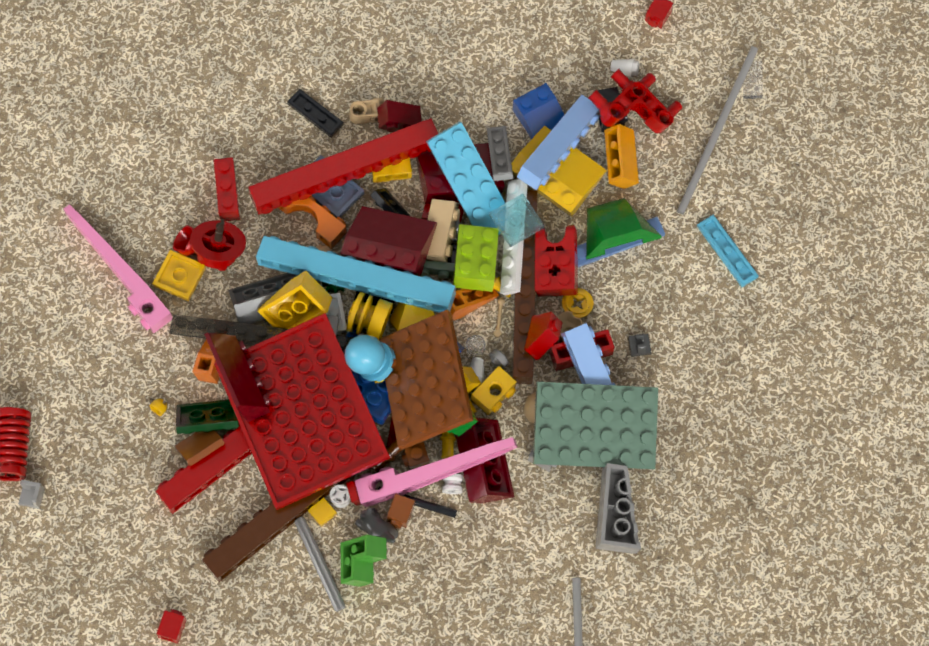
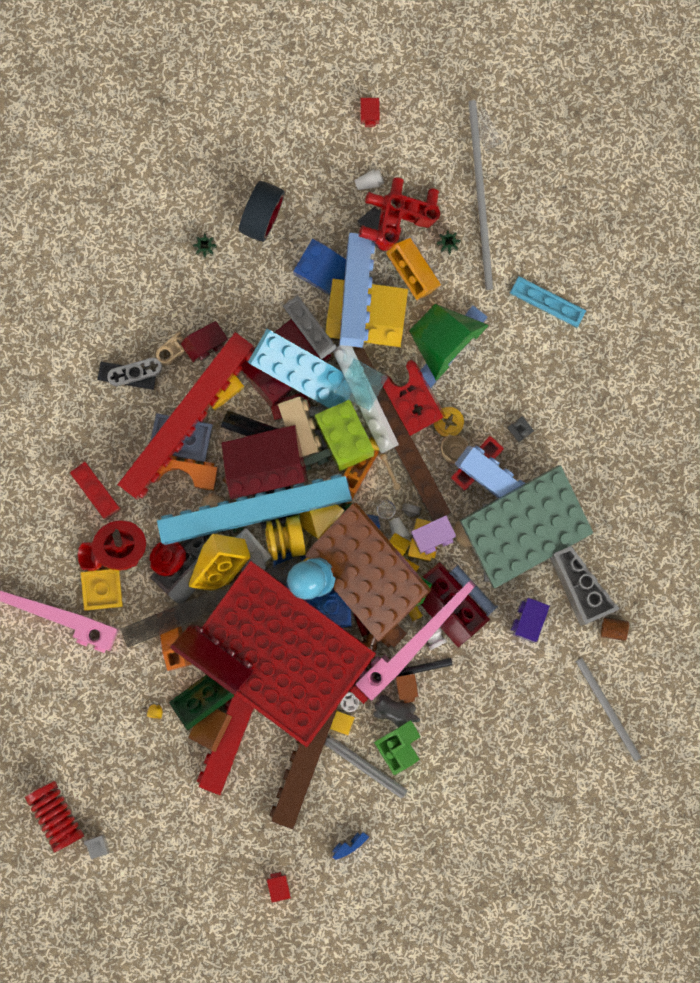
camera: 25 degrees left, 15 degrees up
(253, 626) = (345, 849): none -> blue slope
(254, 279) = (167, 558): none -> red tile
(319, 104) = (122, 381): none -> light grey beam
(451, 47) = (205, 240): none -> dark green gear
(505, 386) = (433, 534): none -> lavender brick
(514, 36) = (261, 211): none -> black wheel
(514, 465) = (476, 593): none -> sand blue pin
(542, 334) = (439, 472): red slope -> none
(551, 512) = (531, 620): none -> dark purple brick
(626, 568) = (615, 629): none -> dark orange piece
(668, 155) = (450, 247): none -> dark green gear

